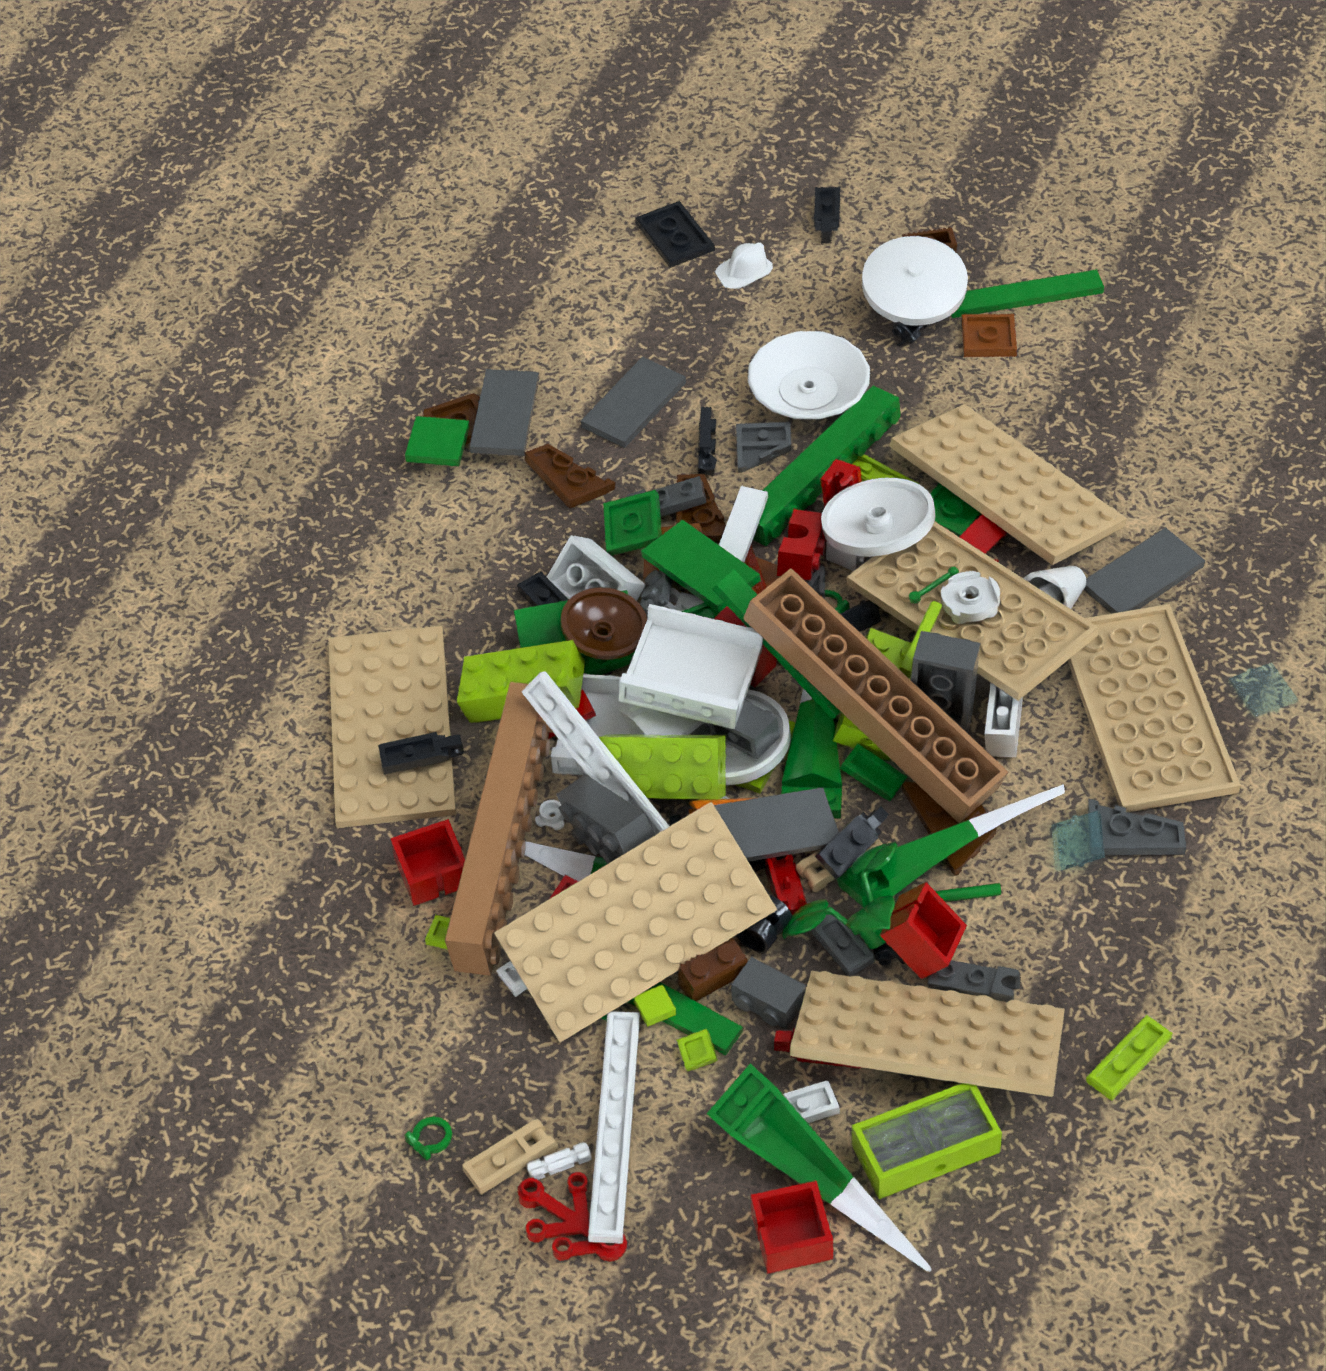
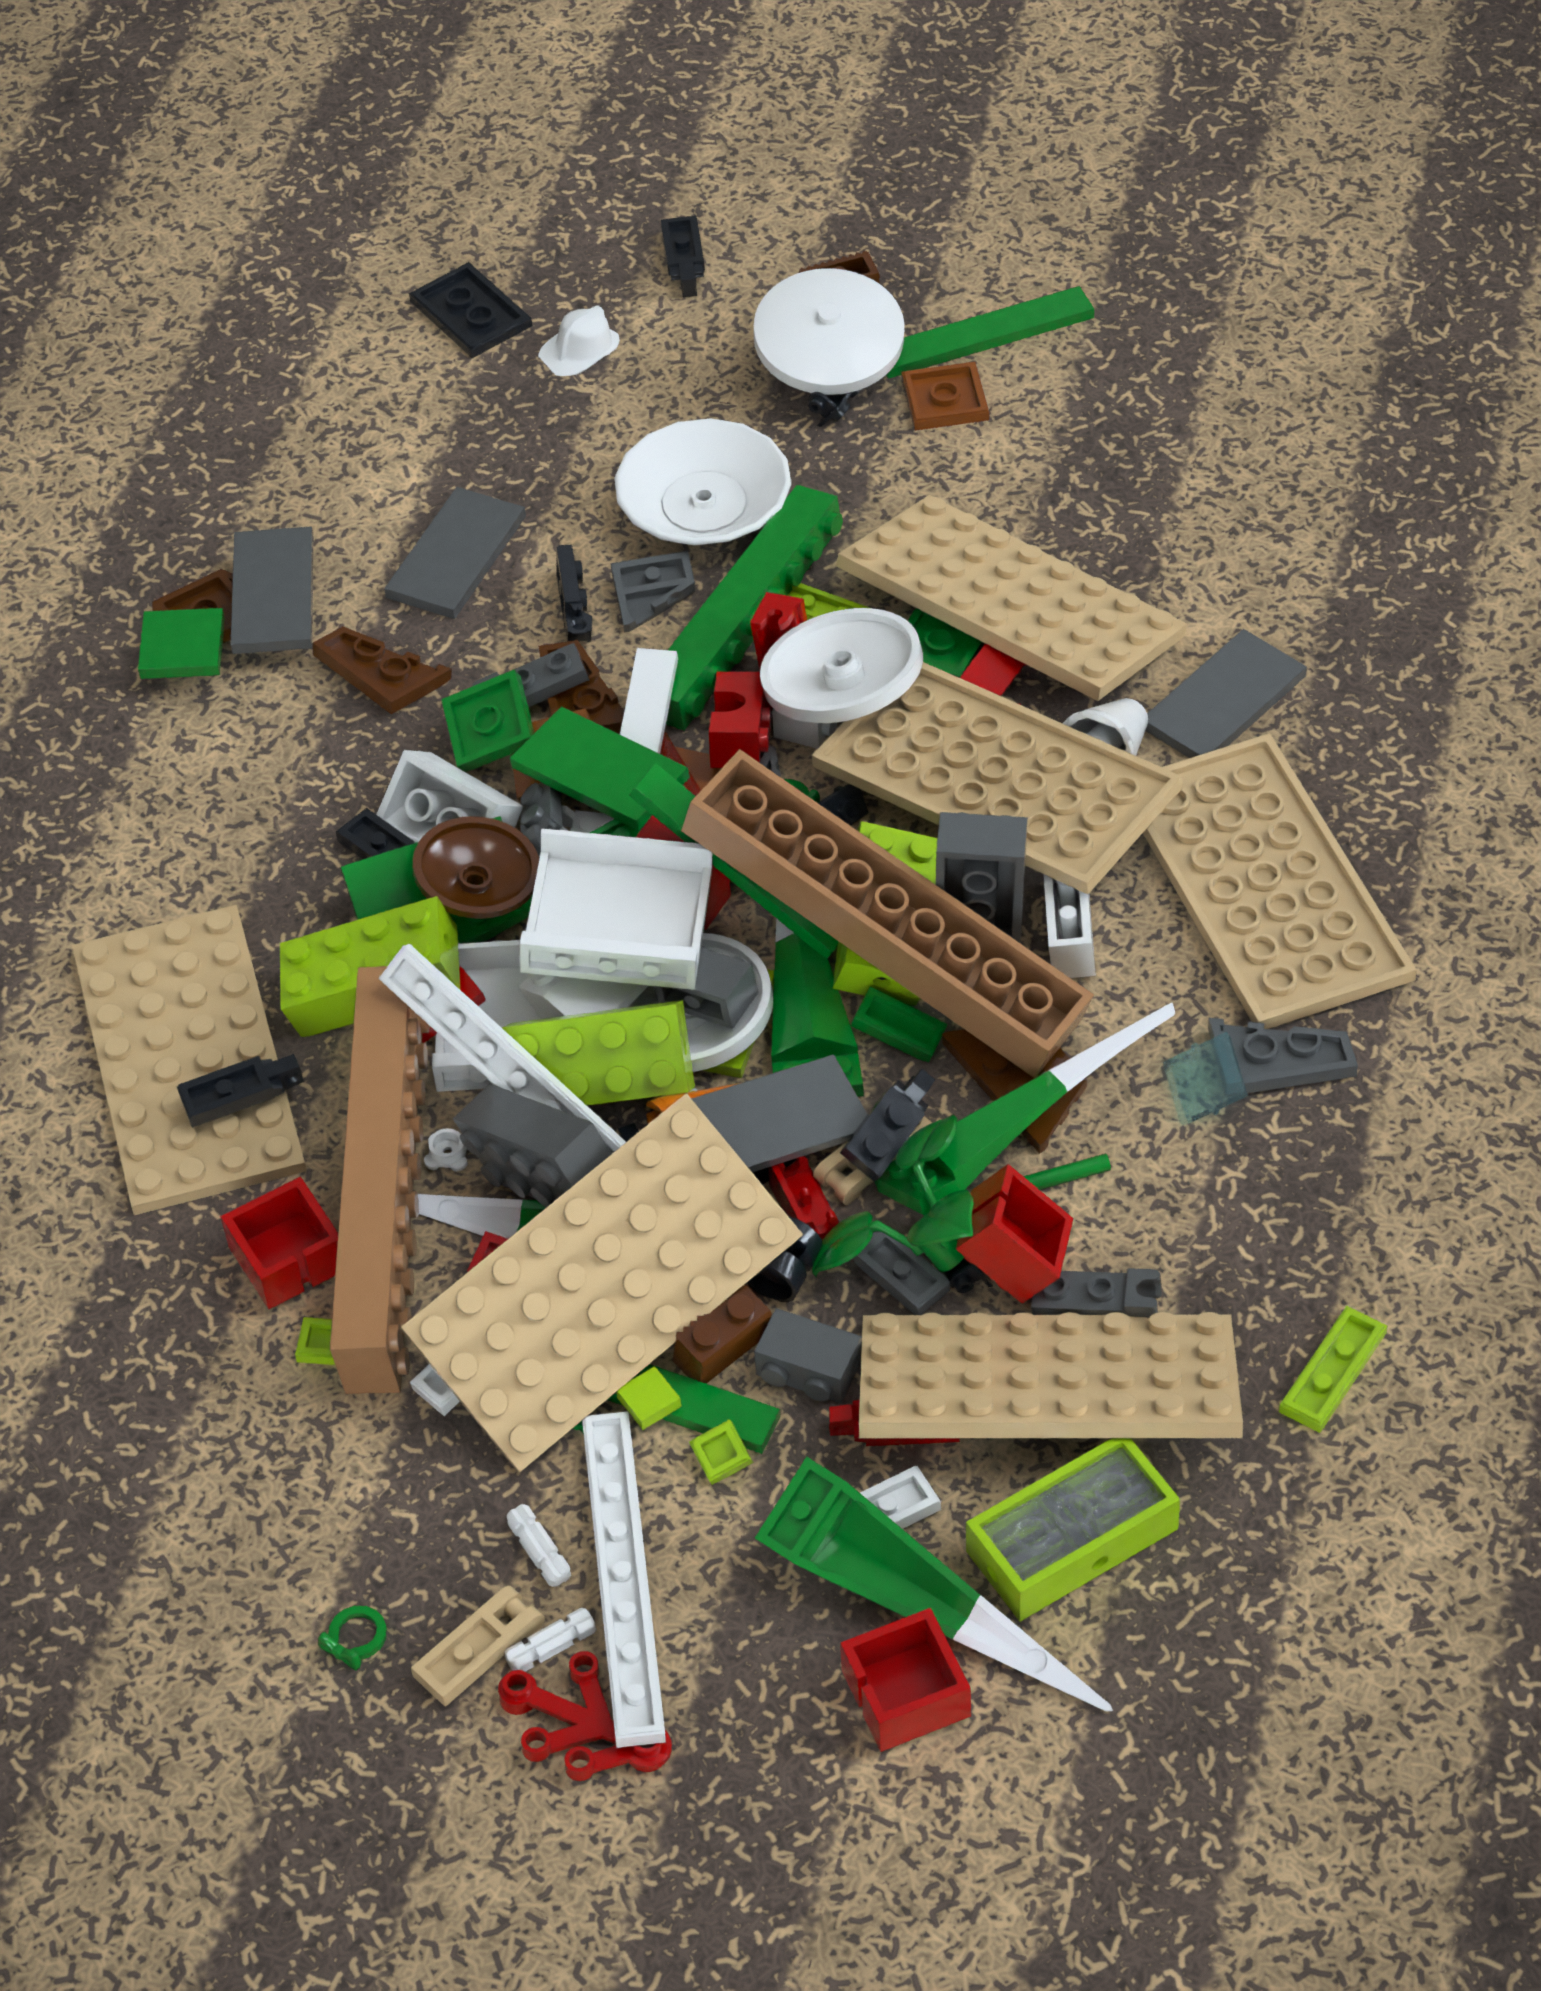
camera: 10 degrees left, 0 degrees up
(563, 1095) = (538, 1545): none -> white axle
(915, 596) = (915, 769): green hinge -> none
(926, 625) = (942, 803): lime tile -> none
(970, 610) = (1000, 776): white plate -> none
(1263, 690) = (1420, 834): clear light blue piece -> none

